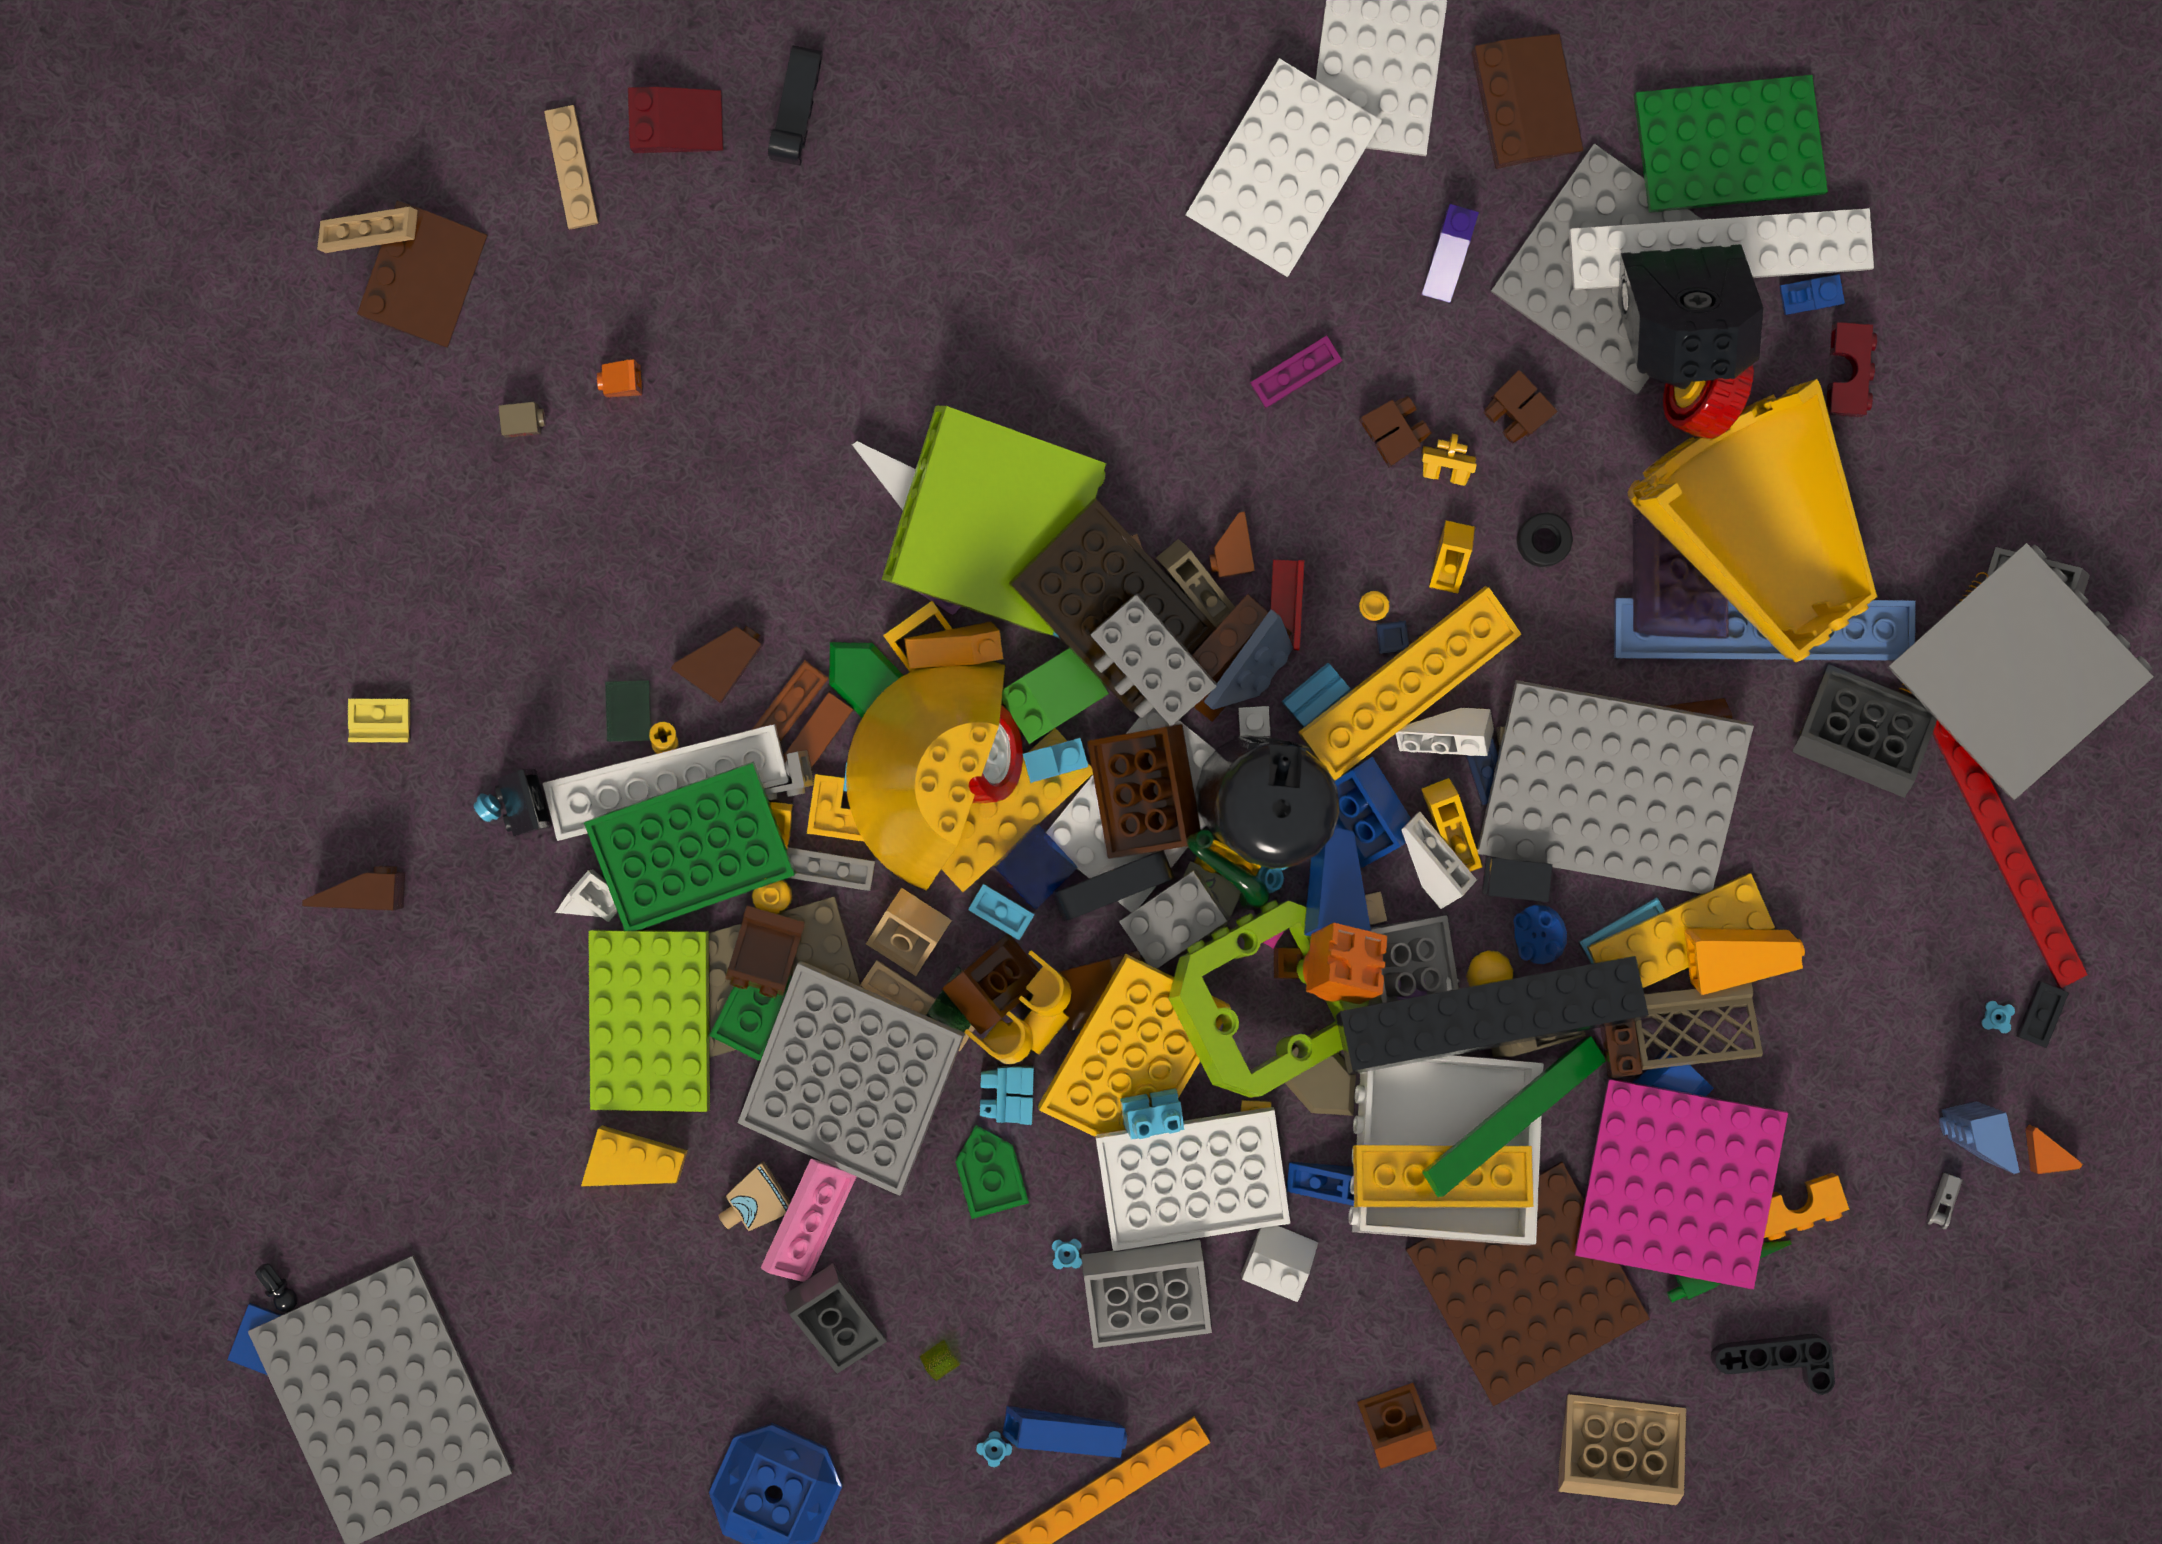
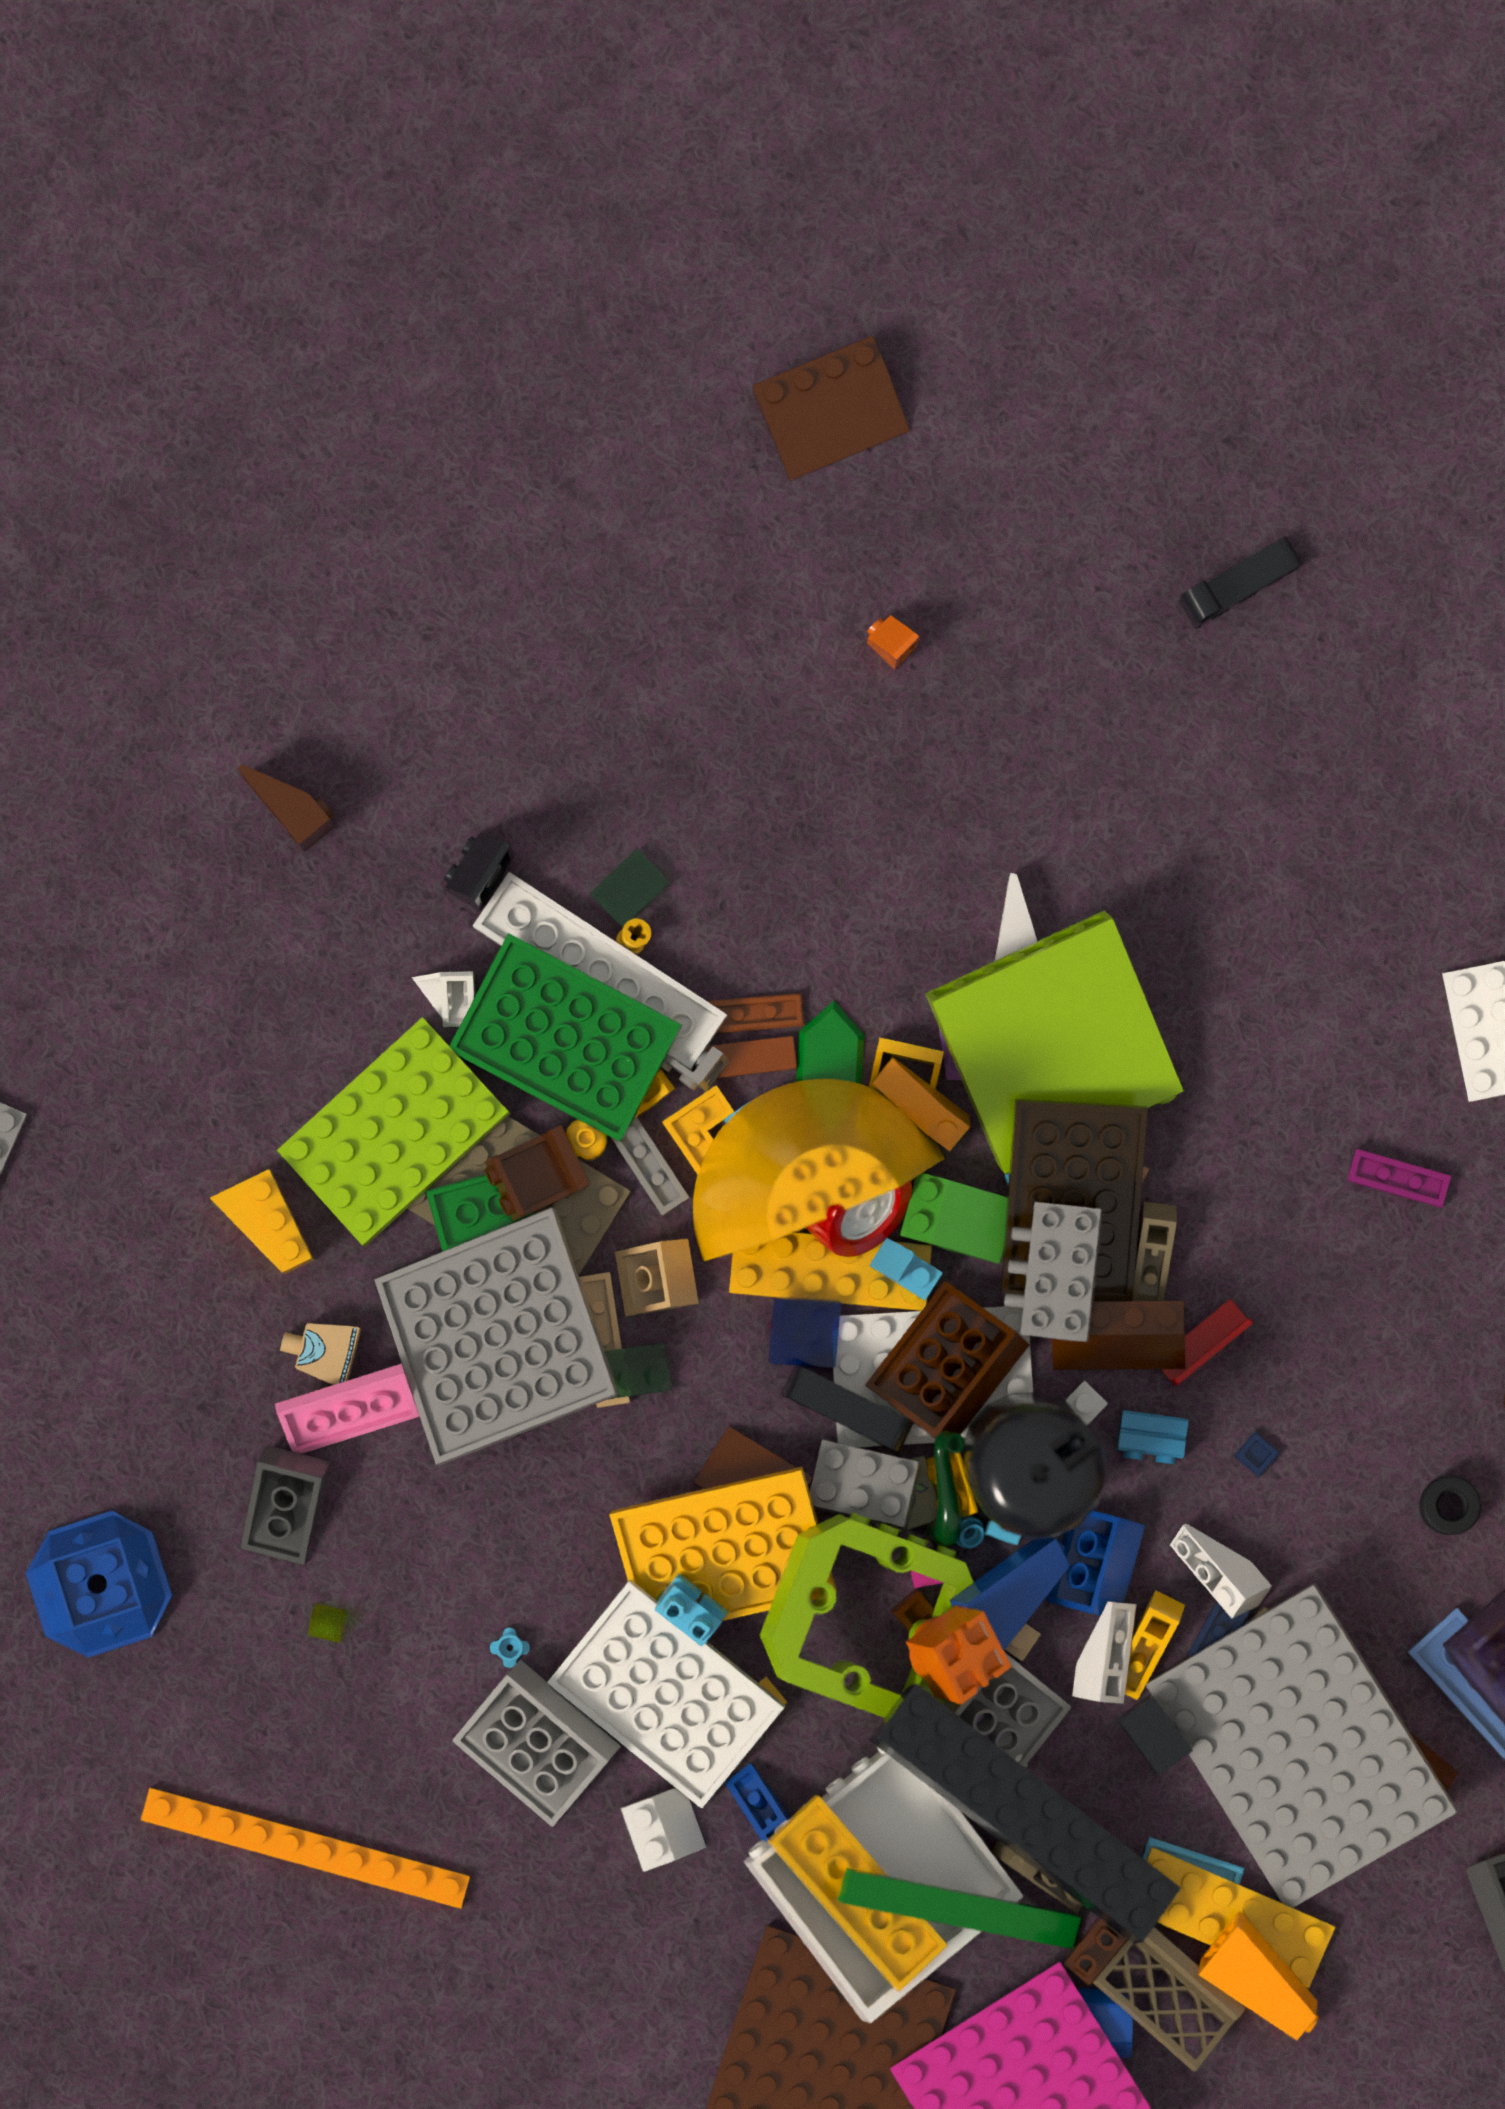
camera: 45 degrees right, 5 degrees down
(367, 229) = (827, 333): tan plate -> none
(378, 720) = (439, 695): light yellow plate -> none
(487, 807) = (448, 846): medium azure plate -> none
(521, 419) = (787, 591): dark tan brick -> none
(571, 167) = (1025, 448): tan plate -> none
(674, 120) = (1139, 497): dark red slope -> none
(720, 662) = (737, 927): reddish brown slope -> none
(990, 1174) = (518, 1524): green tile -> none
(992, 984) = (678, 1384): reddish brown slope -> none
(1001, 911) = (741, 1338): medium azure plate -> none
(1003, 1449) = (301, 1727): medium azure plate -> none
(1009, 1107) = (608, 1469): medium azure hips -> none
(1015, 1039) = (685, 1453): yellow piece -> none
(1063, 1433) = (361, 1778): blue slope -> none
(1233, 550) = (1207, 1259): dark orange slope -> none
(1254, 665) = (1131, 1359): sand blue wing -> none
(1325, 1086) = (840, 1733): dark tan tile -> none
(1374, 605) = (1268, 1415): yellow plate -> none
(1391, 417) = (1422, 1315): reddish brown hips -> none
(1397, 1425) = (614, 2051): dark orange slope -> none
(1410, 683) = (1233, 1501): yellow plate -> none
(1452, 556) = (1366, 1442): yellow slope -> none
(1461, 464) = (1448, 1381): yellow hips -> none
(1489, 968) = (1062, 1779): yellow hair -> none
(1542, 947) = (1135, 1785): blue plate -> none

